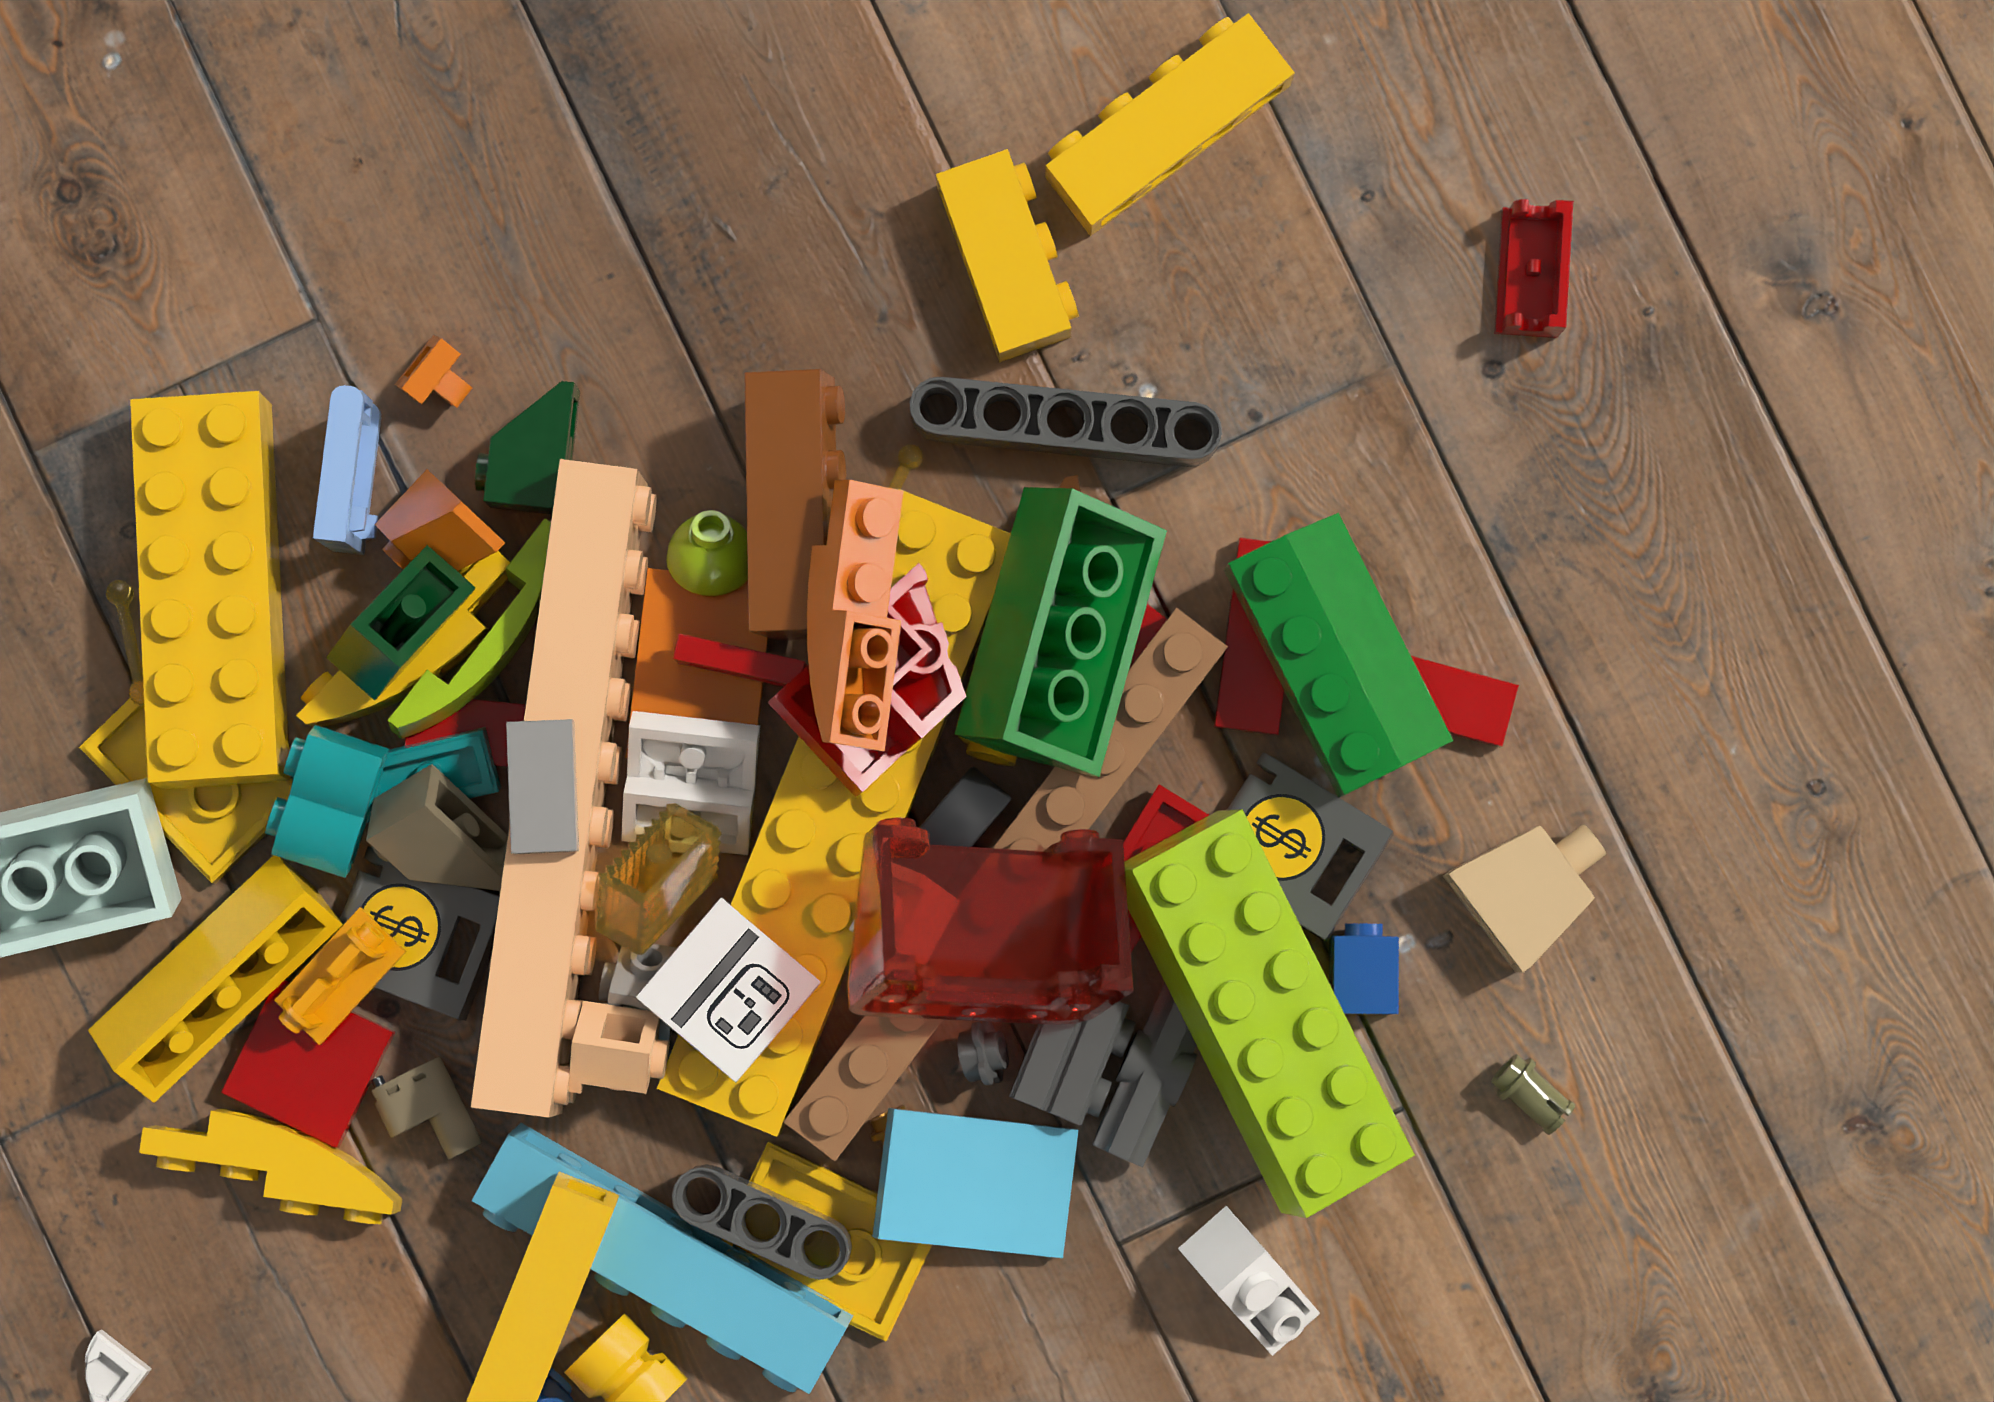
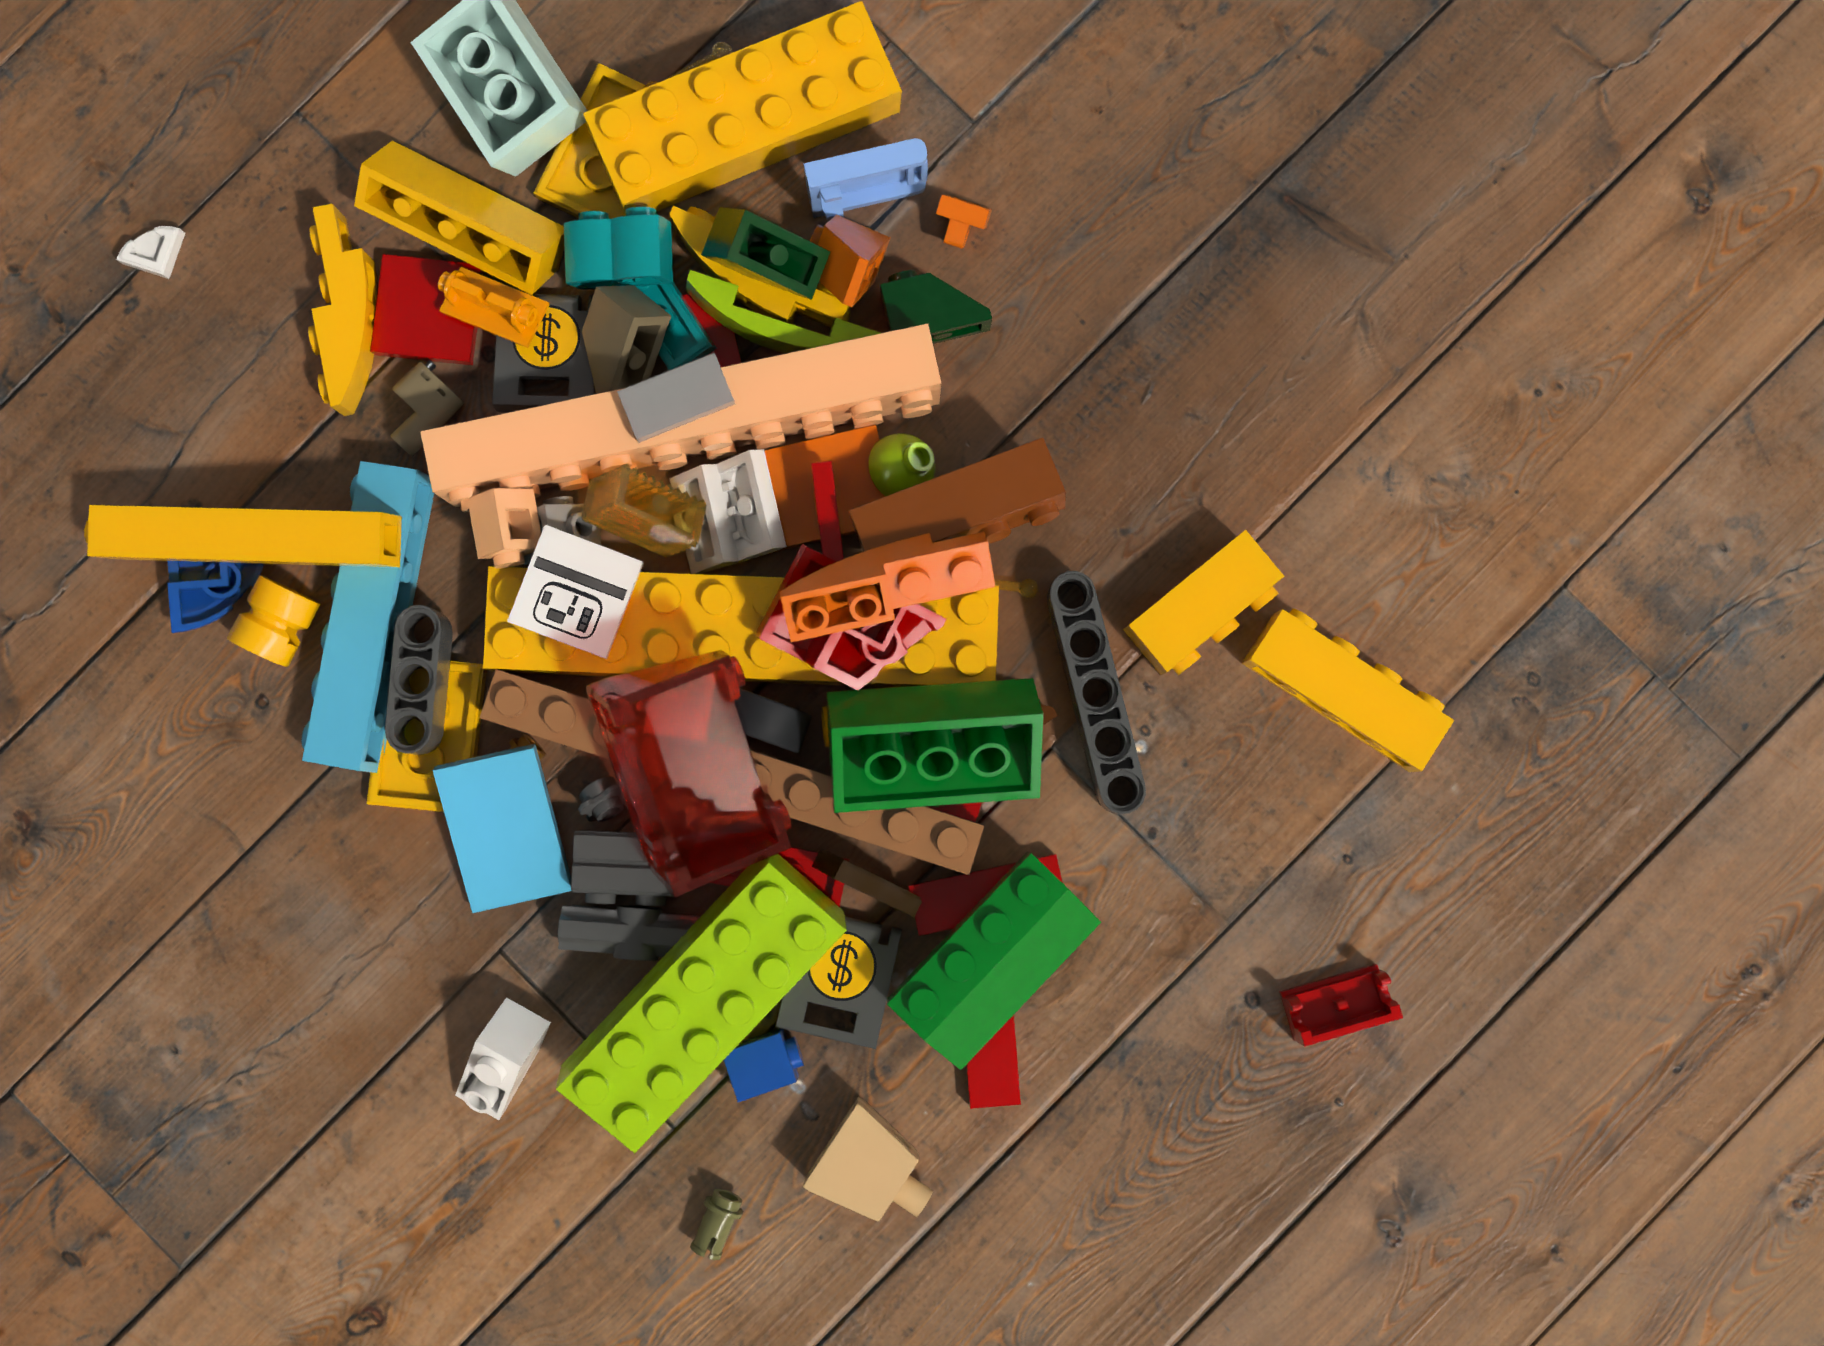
camera: 65 degrees right, 0 degrees up
(1193, 770) = (867, 882): none -> dark brown tile

